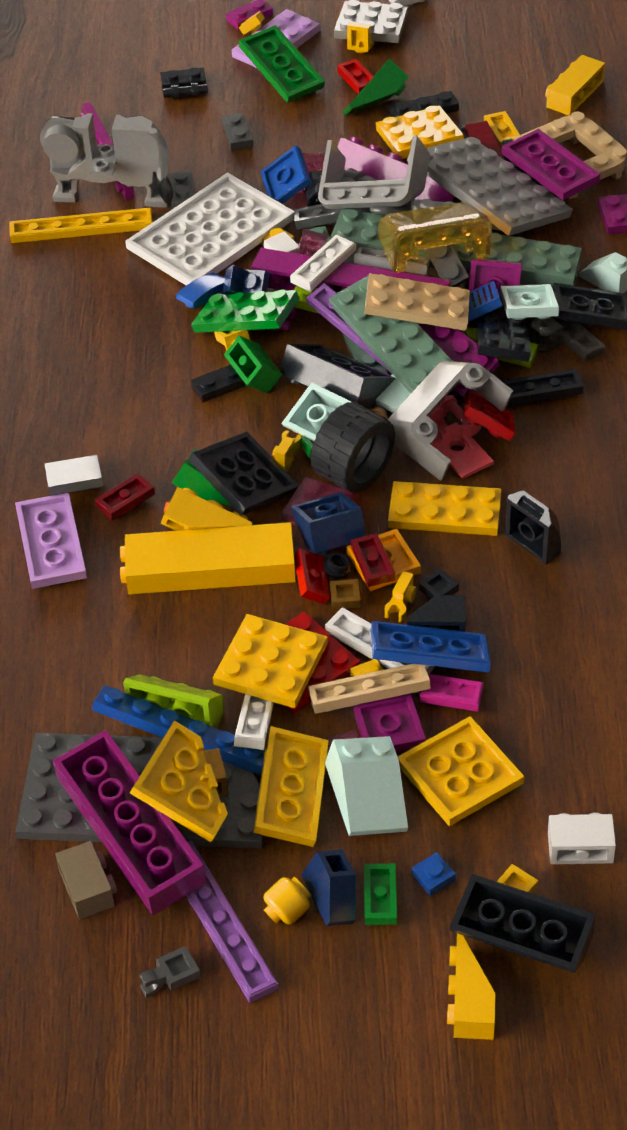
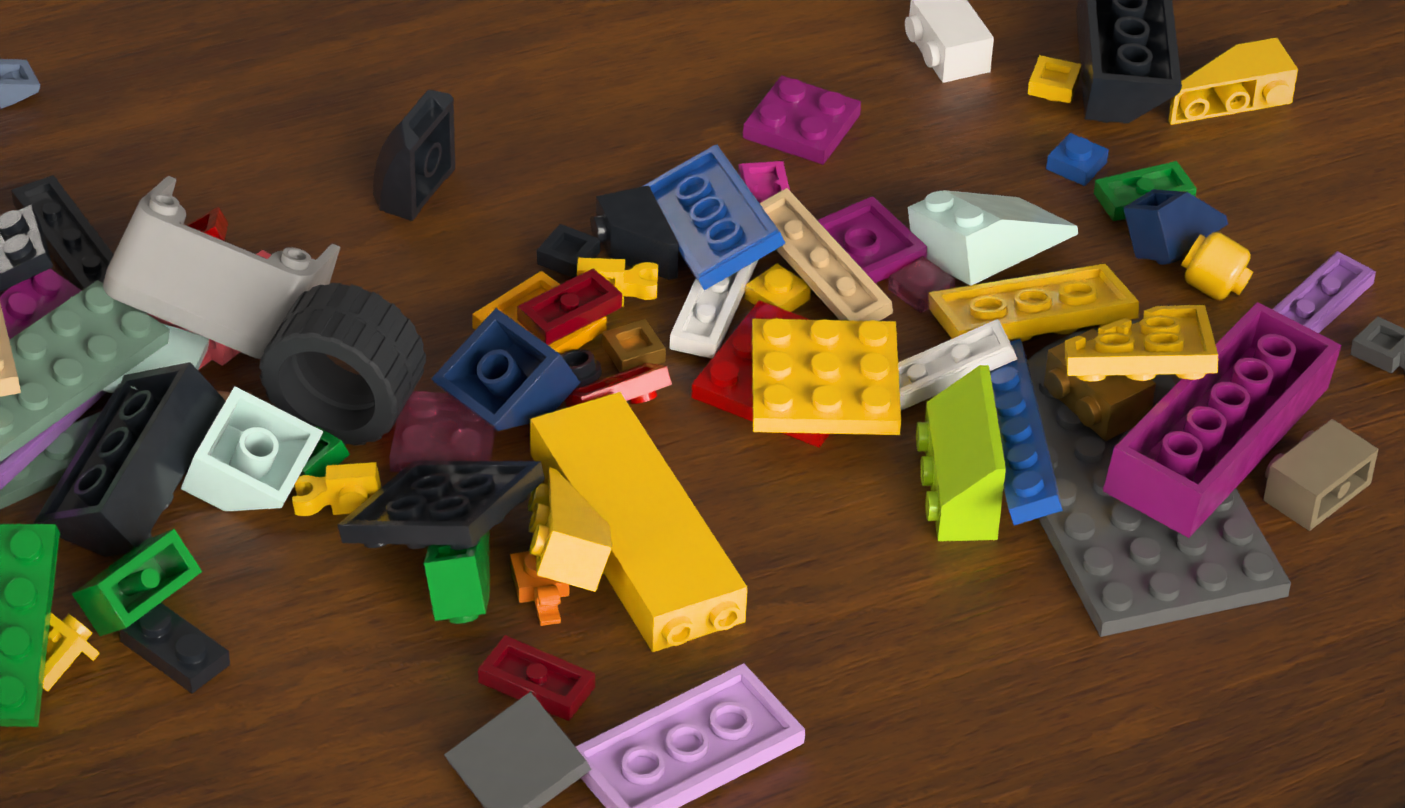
camera: 115 degrees left, 5 degrees down
(444, 508) = (394, 263): yellow plate -> none
(460, 771) = (899, 158): yellow plate -> none
(529, 737) = (802, 119): none -> magenta plate

